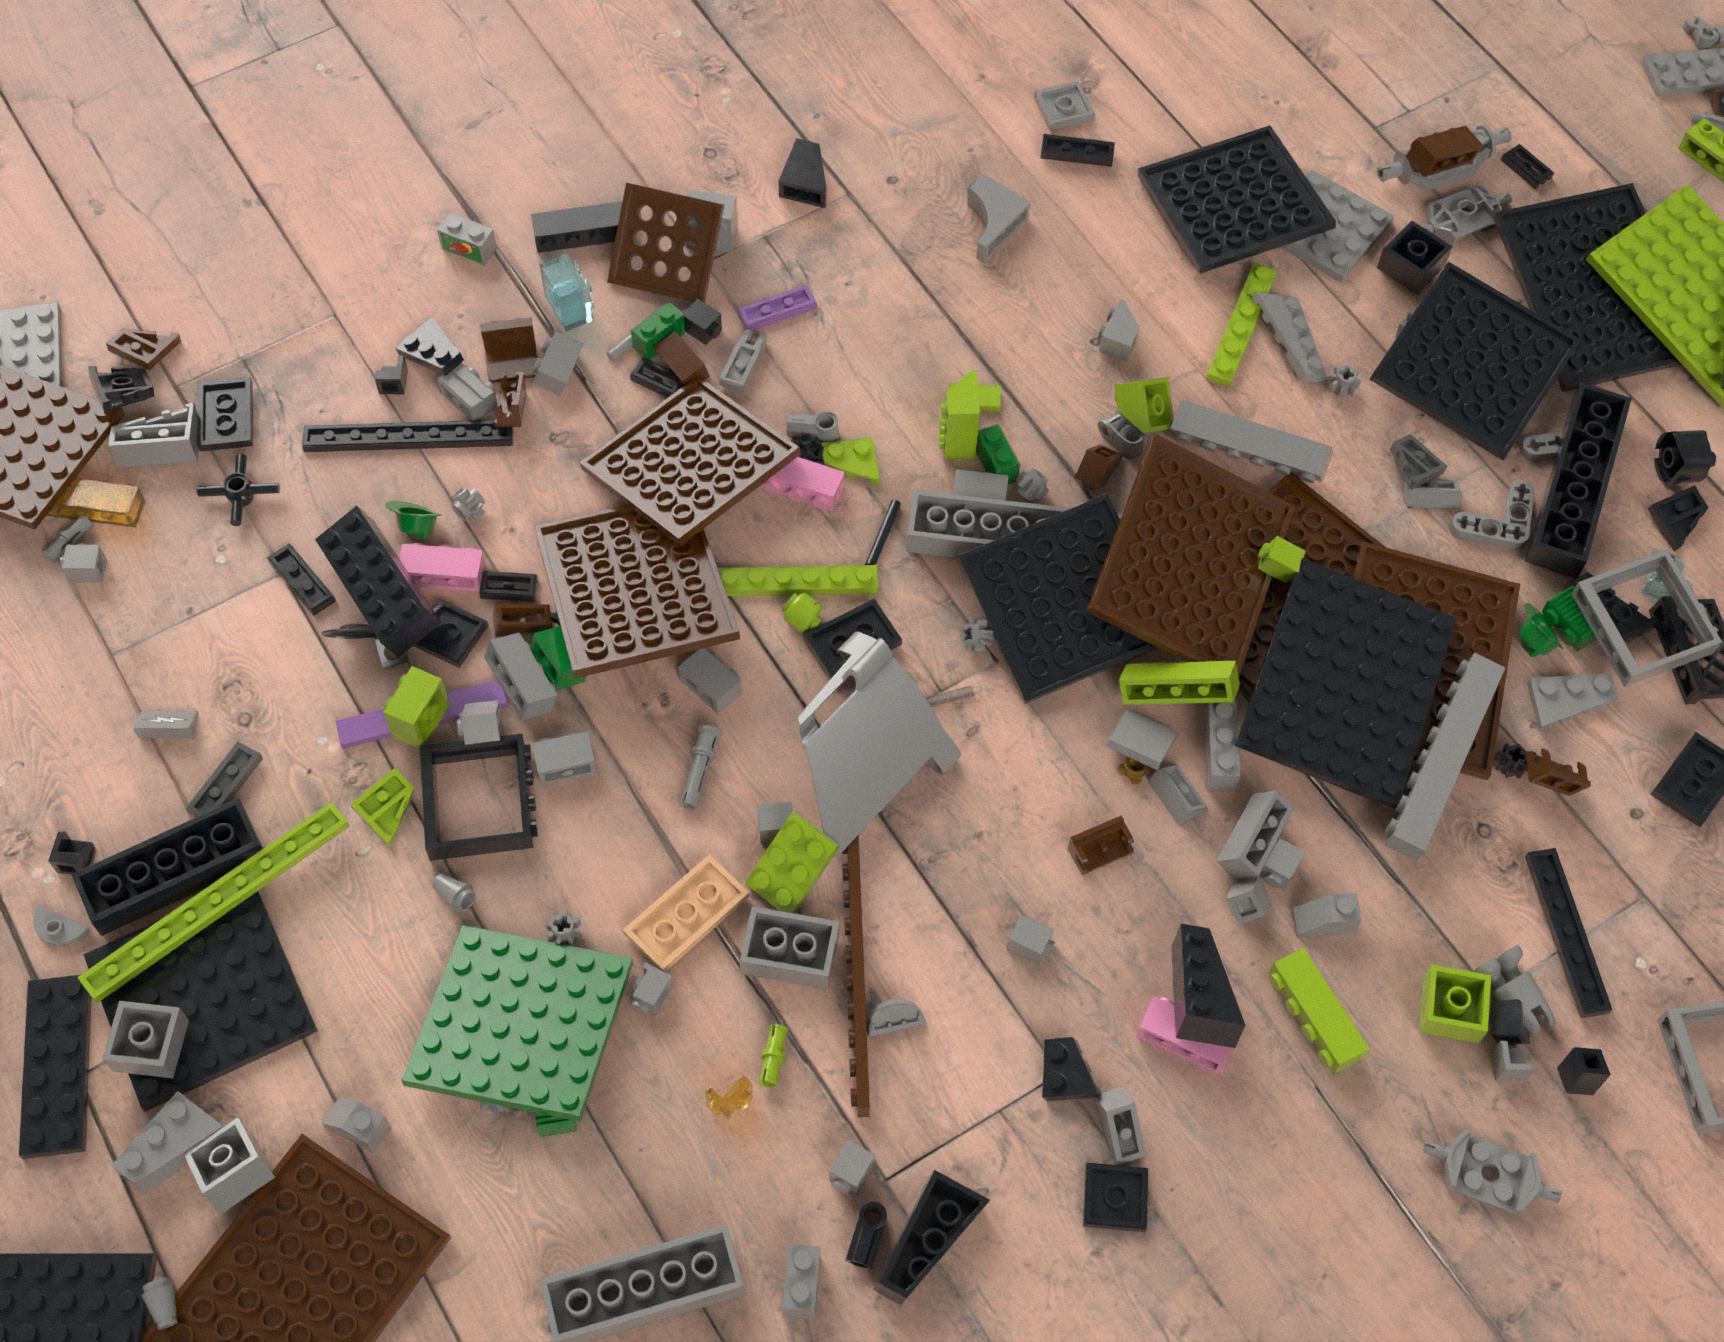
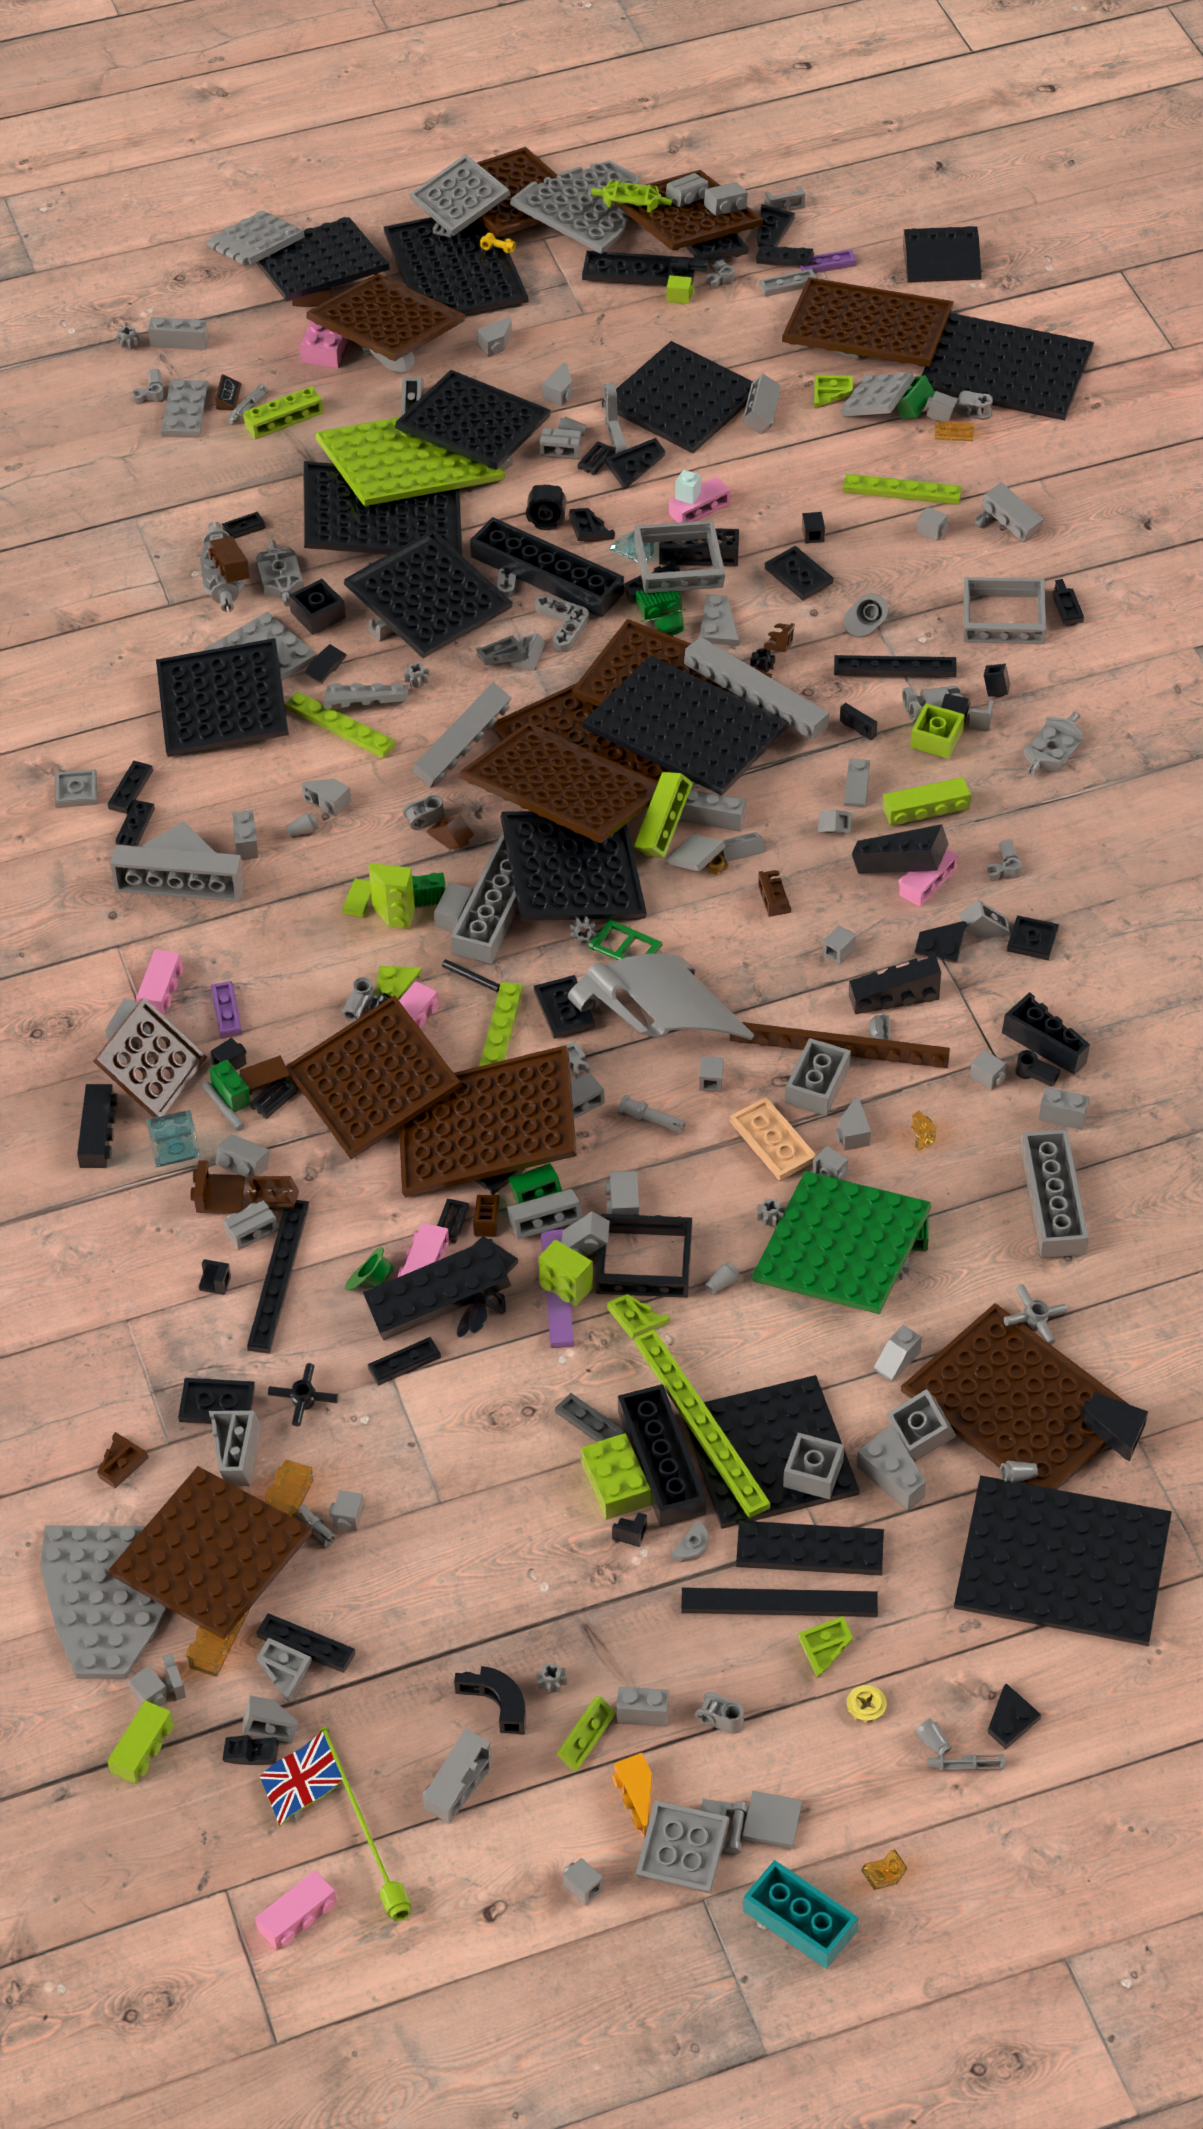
camera: 75 degrees left, 10 degrees down
(121, 386) = (167, 1471): black wing -> none
(137, 816) = (615, 1476): none -> lime brick
(166, 724) = (521, 1461): light grey slope -> none
(423, 1301) = (1035, 1314): none -> light grey bar
(431, 348) = (198, 1243): wing -> none
(467, 238) = (82, 1208): light grey brick -> none
(468, 504) = (368, 1233): light grey gear -> none
(722, 1007) = (853, 1127): none -> light grey slope
(742, 362) = (276, 1037): light grey hinge -> none
(772, 662) = (577, 1059): none -> light grey plate
(773, 1056) = (895, 1103): lime pin -> none
(792, 864) = (753, 1063): lime plate -> none
(796, 236) = (161, 979): none -> bright pink brick
(802, 612) = (533, 1031): lime head -> none
(804, 175) = (92, 966): black slope -> none
(951, 214) = (177, 873): none -> light grey brick
(967, 1023) = (897, 986): none -> black wedge
(983, 693) = (633, 934): none -> green window
(1027, 168) = (135, 823): none -> black hinge
(1032, 485) = (457, 873): light grey gear -> none
(1033, 266) = (245, 834): none -> light grey brick
(1067, 319) = (303, 825): none -> light grey cone
(1146, 404) = (405, 789): lime slope -> none
(1238, 1148) = (1010, 867): none -> light grey bar
(1255, 835) = (789, 805): light grey brick -> none
(1280, 559) = (577, 735): lime brick -> none
(1281, 864) = (812, 798): light grey brick -> none
(1334, 287) = (324, 663): none -> black slope
(1436, 908) = (858, 721): none -> black plate
(1645, 875) = (866, 615): none -> light grey piece

